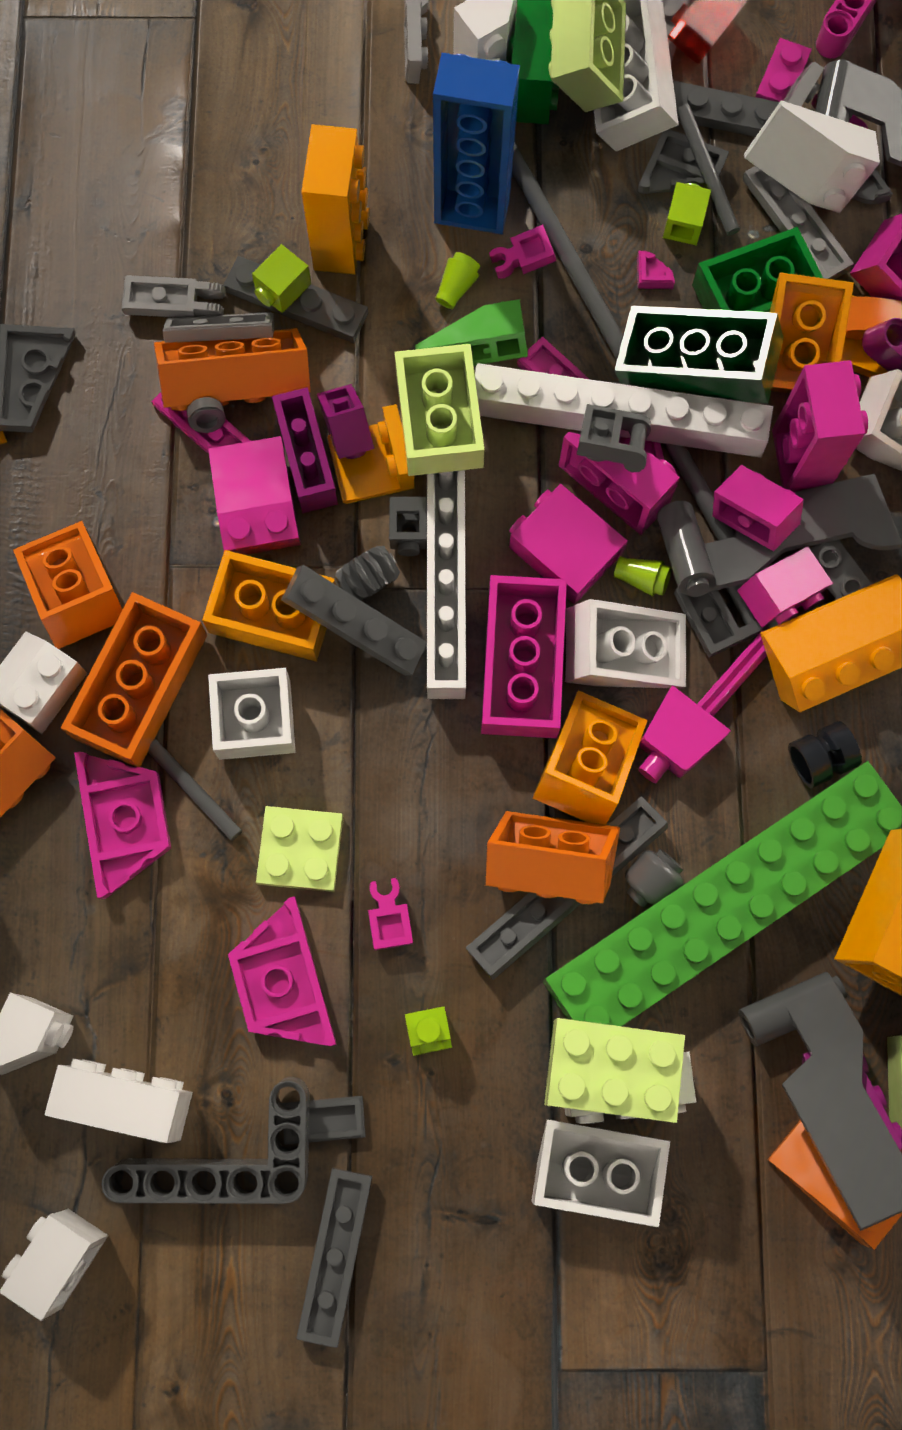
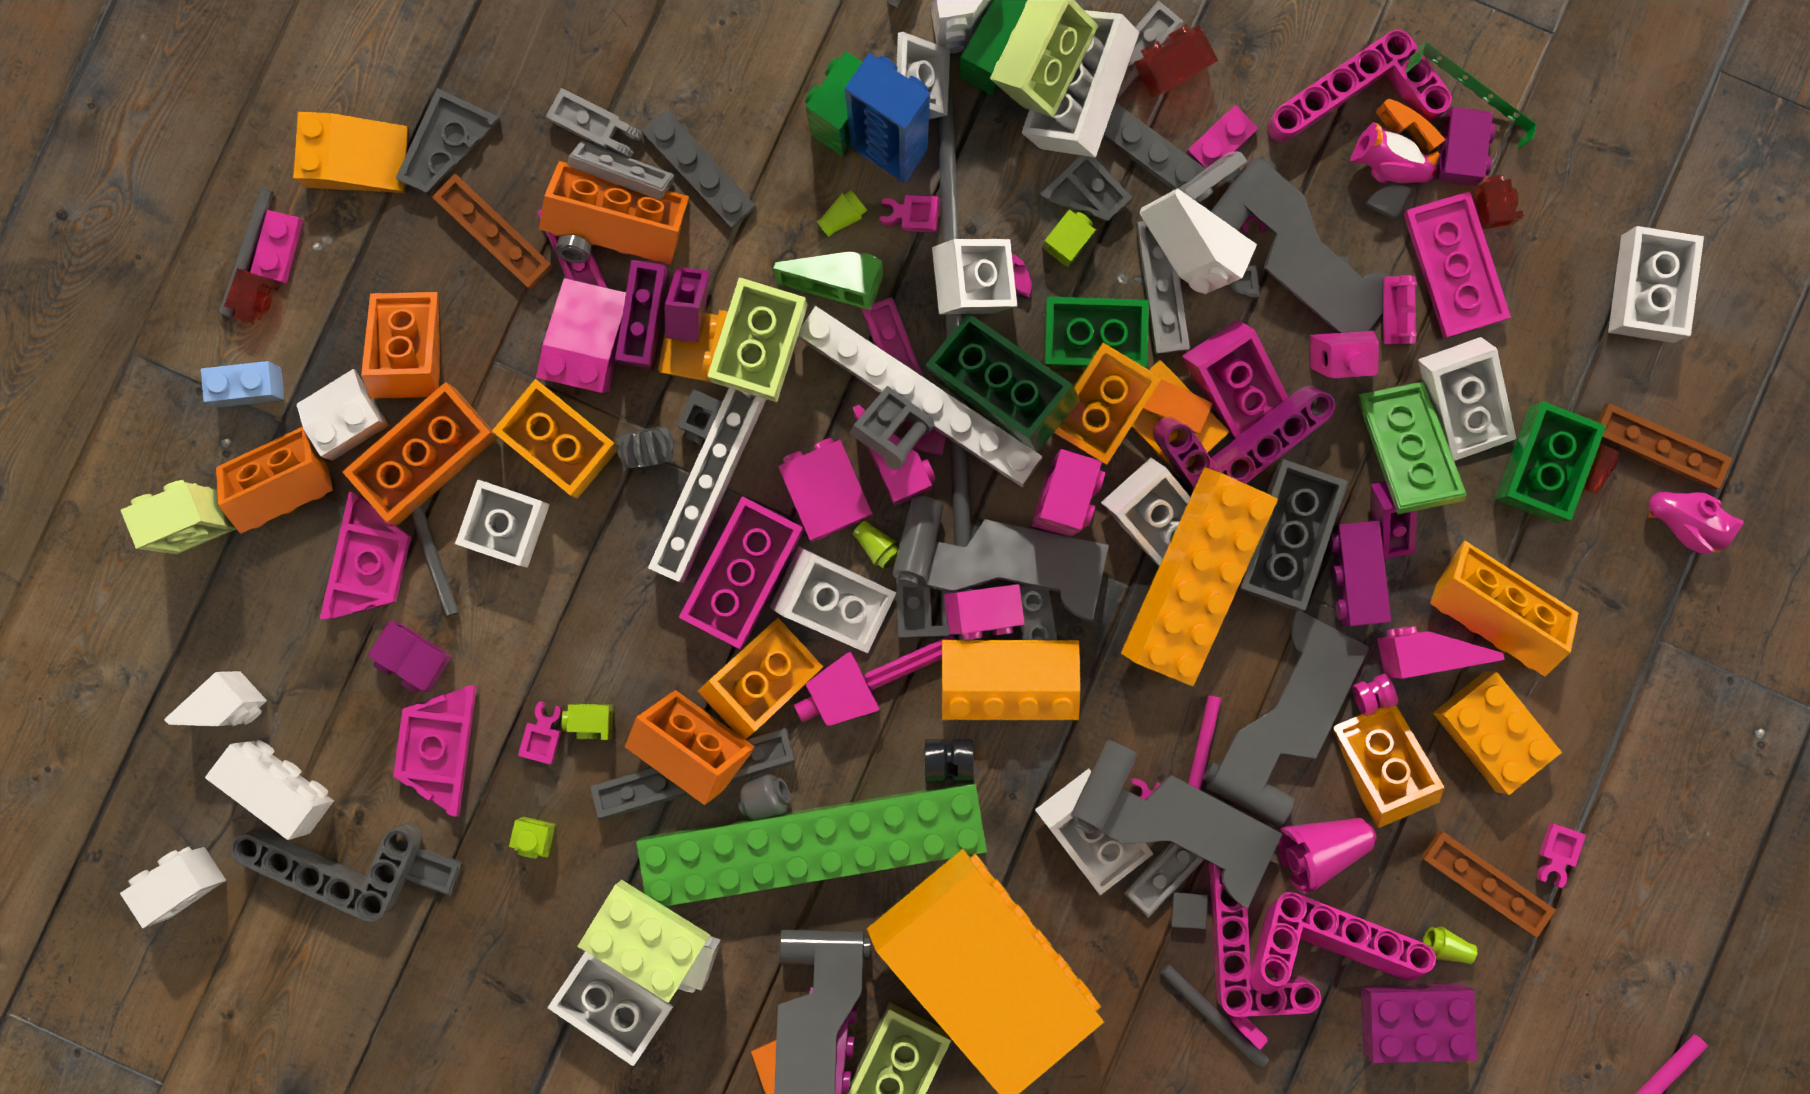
camera: 25 degrees right, 10 degrees up
(114, 437) = (492, 231): none -> dark orange plate
(210, 896) = (409, 657): none -> magenta brick
(281, 279) = (686, 154): lime brick -> none
(299, 849) = (497, 648): yellowish green plate -> none
(334, 1258) = (387, 974): dark grey plate -> none
(335, 198) = (756, 108): light orange brick -> none
(354, 620) = (615, 484): dark grey plate -> none
(410, 170) = (827, 105): none -> green brick
(432, 878) = (589, 720): none -> lime brick
(616, 274) = (974, 276): none -> white brick
(708, 170) = (1104, 207): dark grey bar -> none
(757, 507) = (992, 533): dark pink brick -> none

